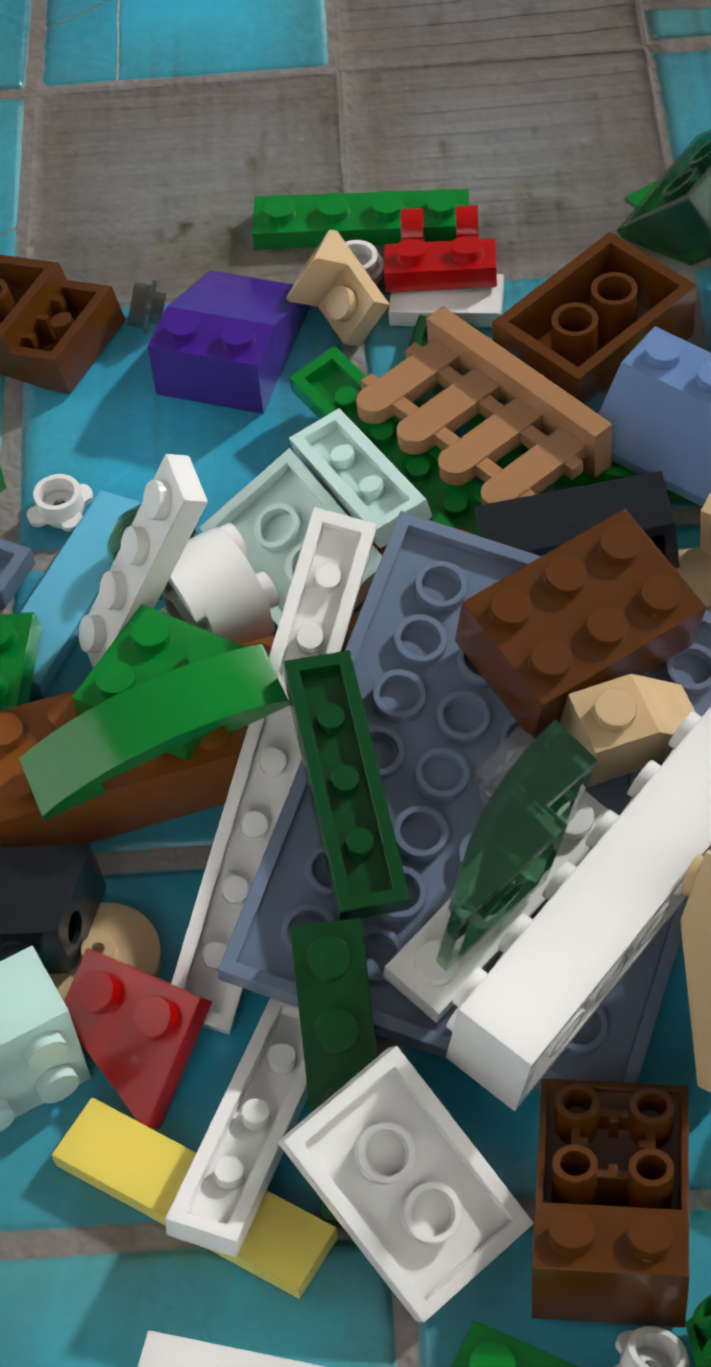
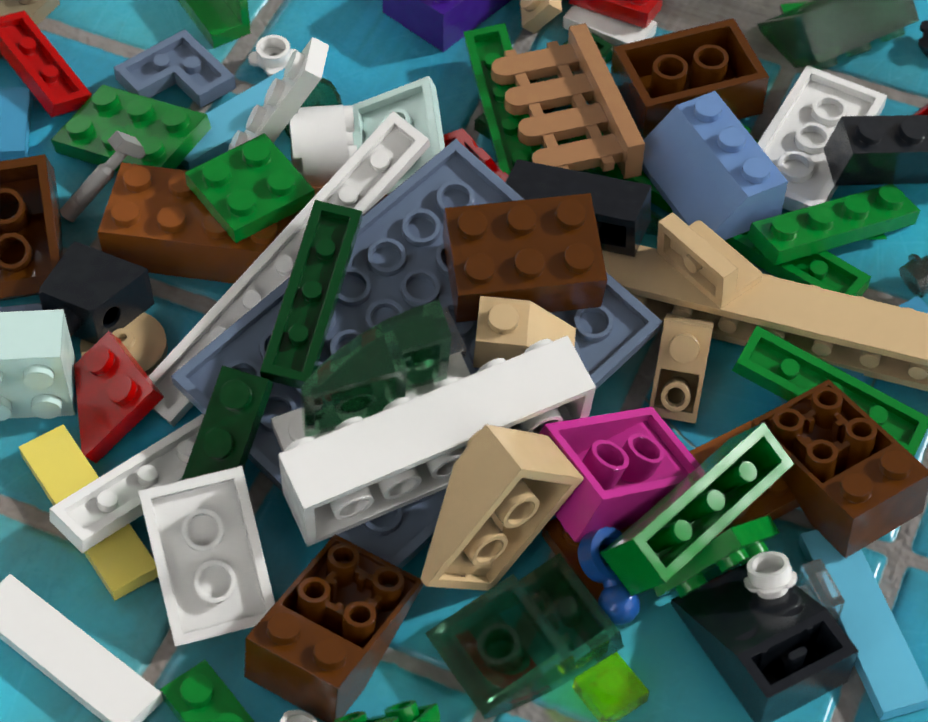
camera: 20 degrees right, 0 degrees up
(148, 722) = (217, 203): green slope -> none
(357, 474) = (462, 108): light aqua plate -> none

